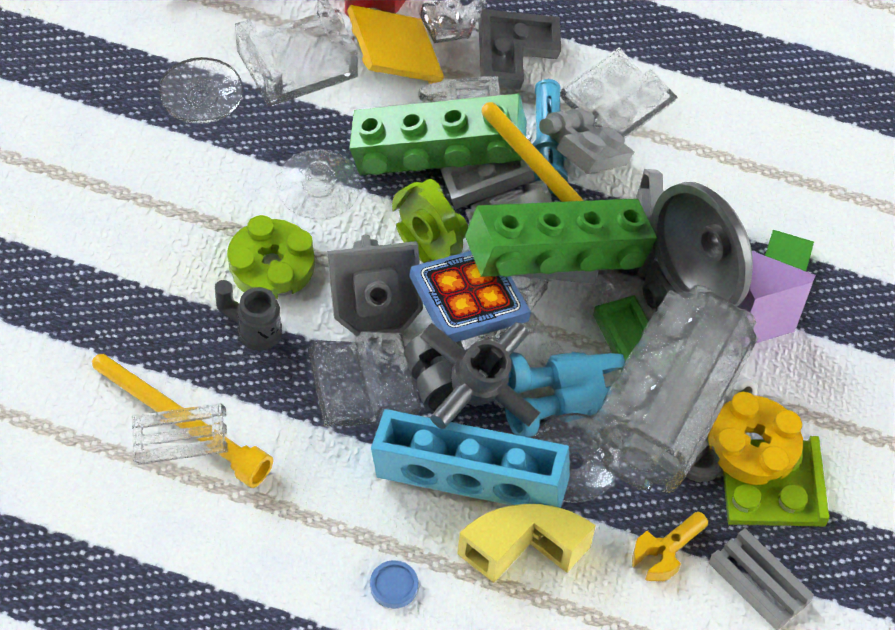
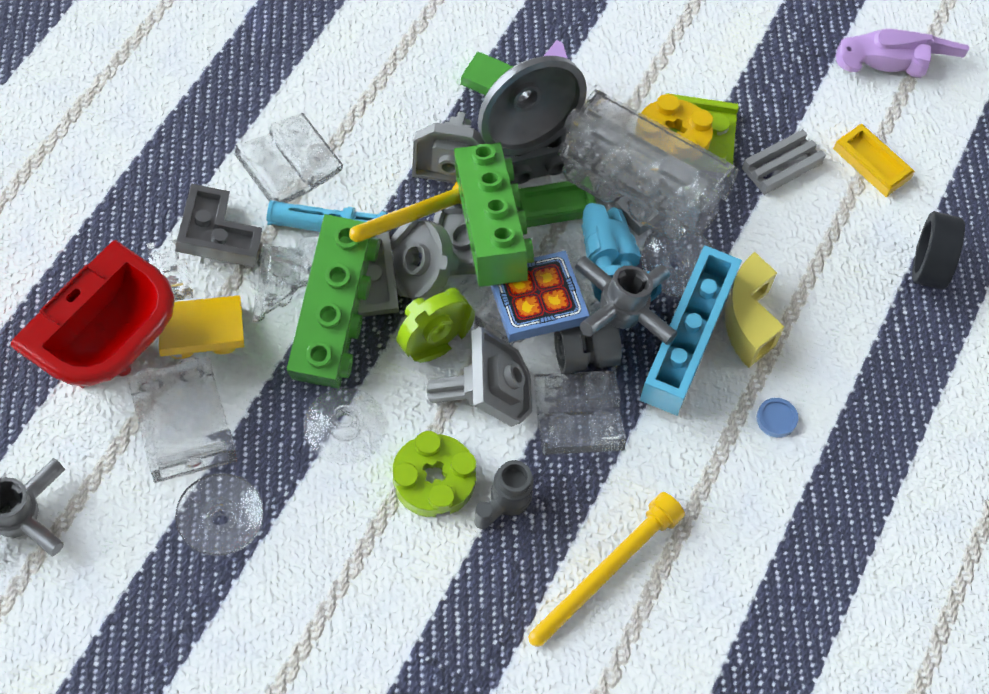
camera: 85 degrees left, 5 degrees up
(217, 430) = (617, 563): clear tile -> none
(583, 144) = (352, 186): light grey plate -> none
(667, 546) = (755, 218): yellow bar -> none

